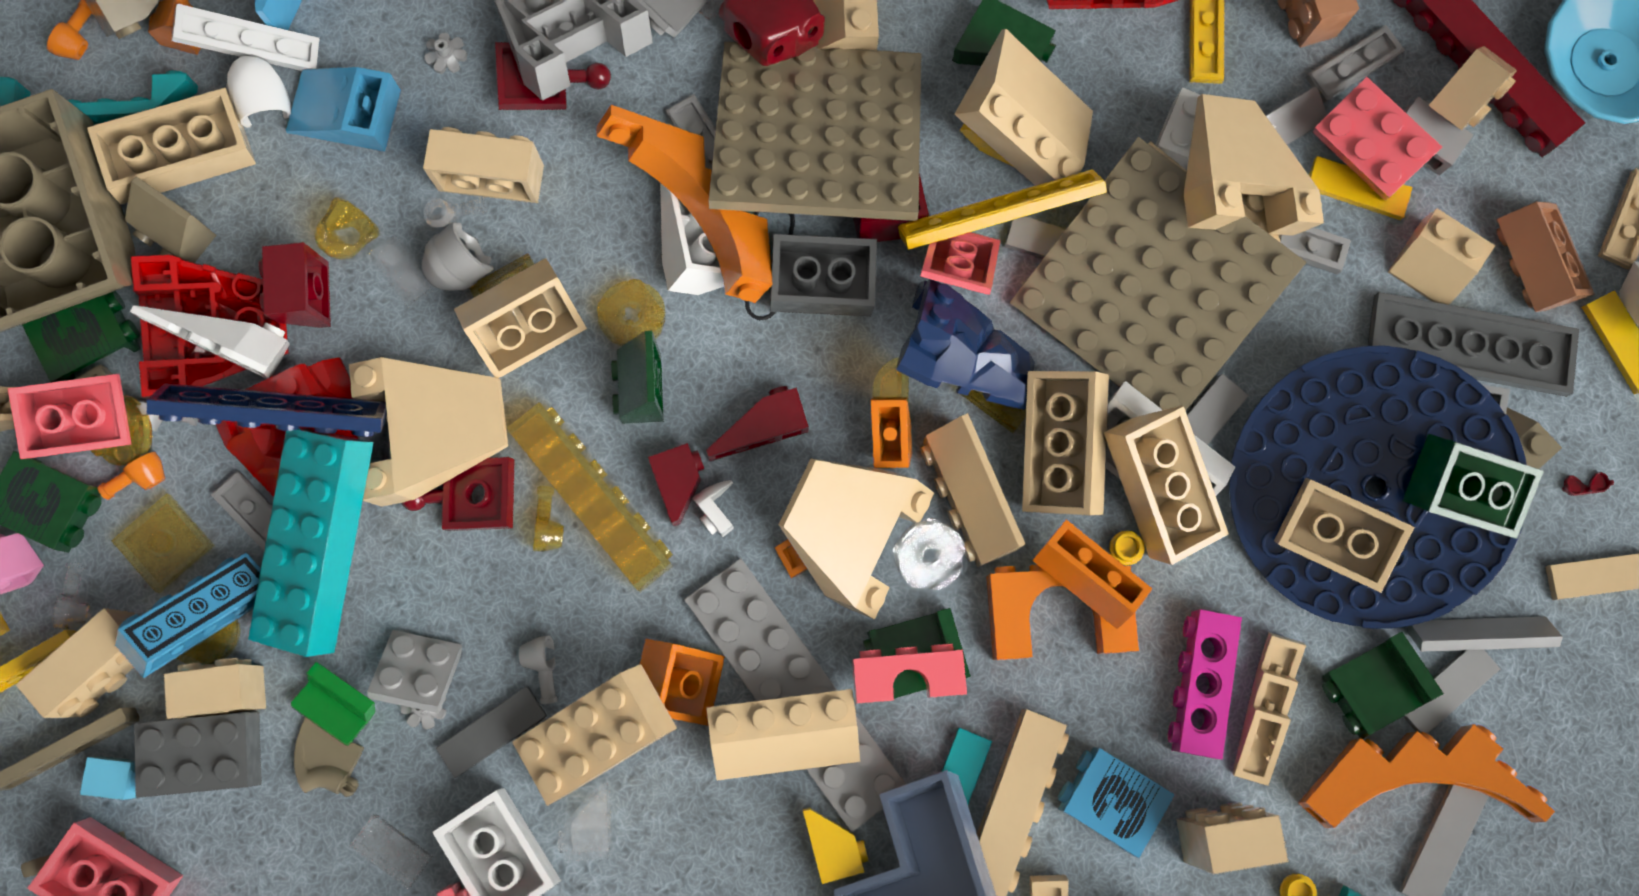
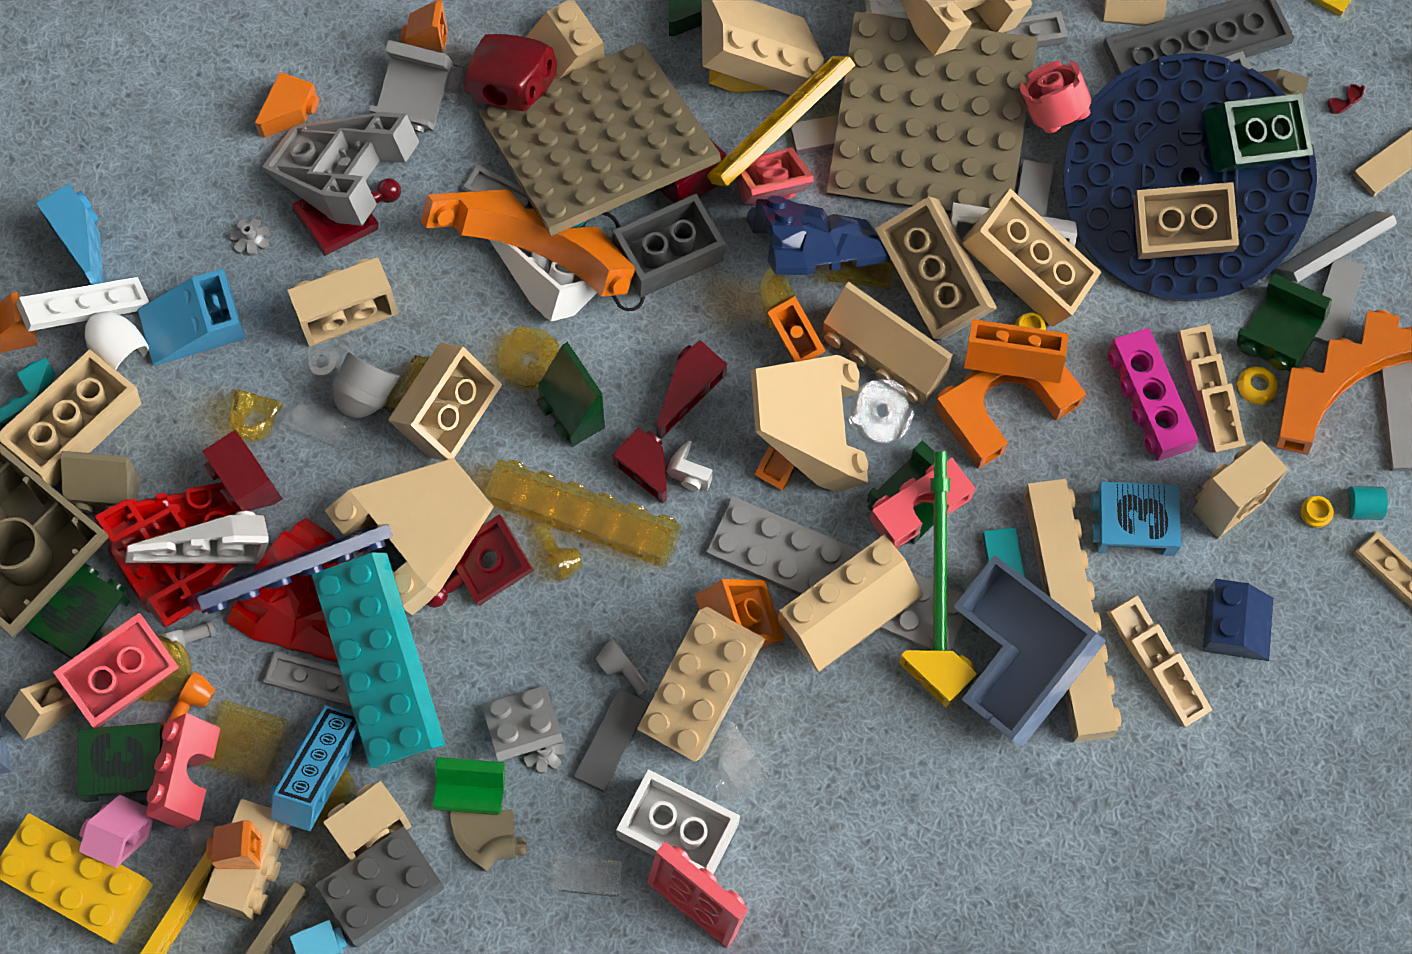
camera: 25 degrees left, 10 degrees down
(55, 563) = (173, 795): none -> coral arch
(62, 660) = (235, 846): none -> orange slope
(930, 676) = (940, 485): none -> green bar
(1289, 332) = (1056, 95): none -> coral brick
(1304, 734) = (1253, 395): none -> yellow piece

